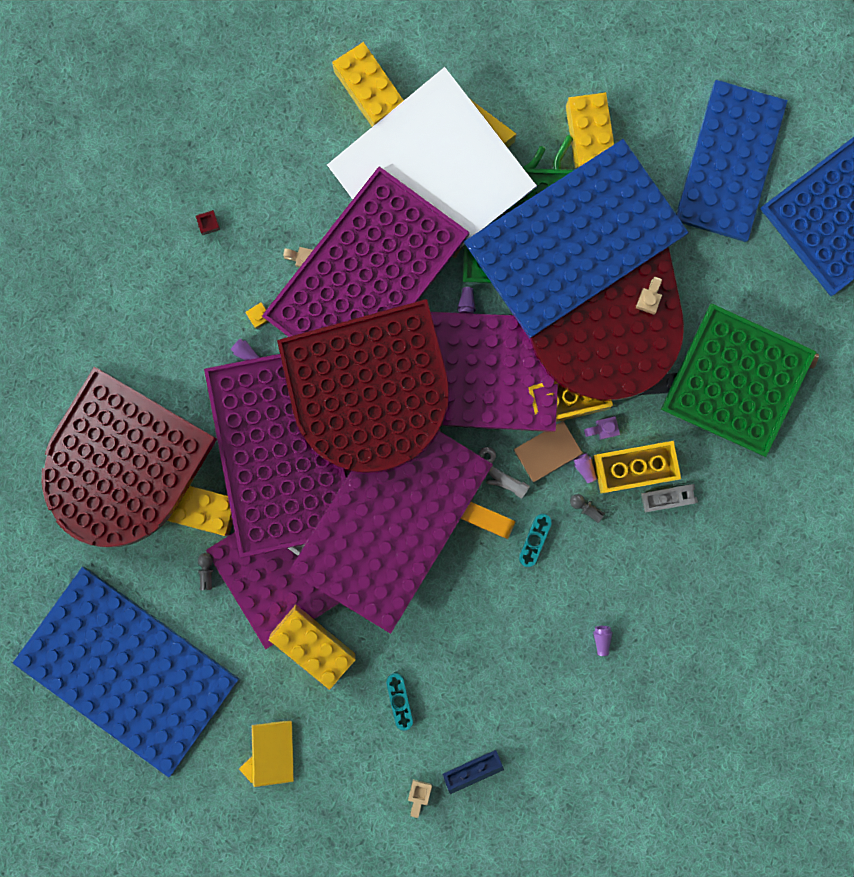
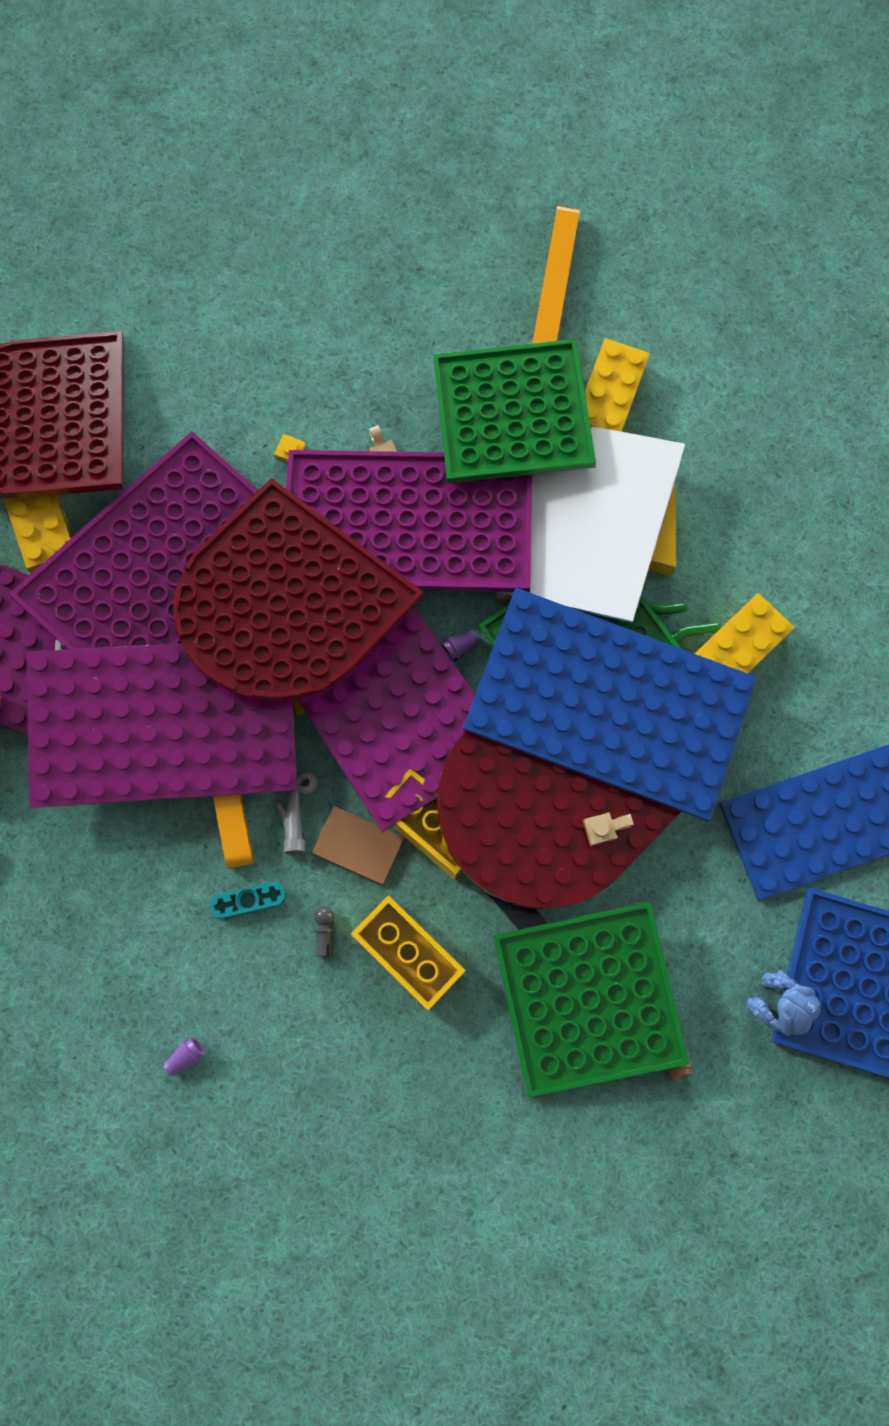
camera: 50 degrees right, 10 degrees down
(207, 222) = (350, 337): dark red plate -> none
(243, 350) = (241, 458): medium lavender cone -> none
(276, 74) = (556, 275): none -> light orange beam
(341, 156) = (513, 411): none -> green plate
(585, 467) = (369, 897): medium lavender cone -> none
(605, 428) = (430, 891): medium lavender plate -> none
(668, 498) = (401, 1018): light grey plate -> none
(831, 267) = (795, 1009): none -> medium blue hair

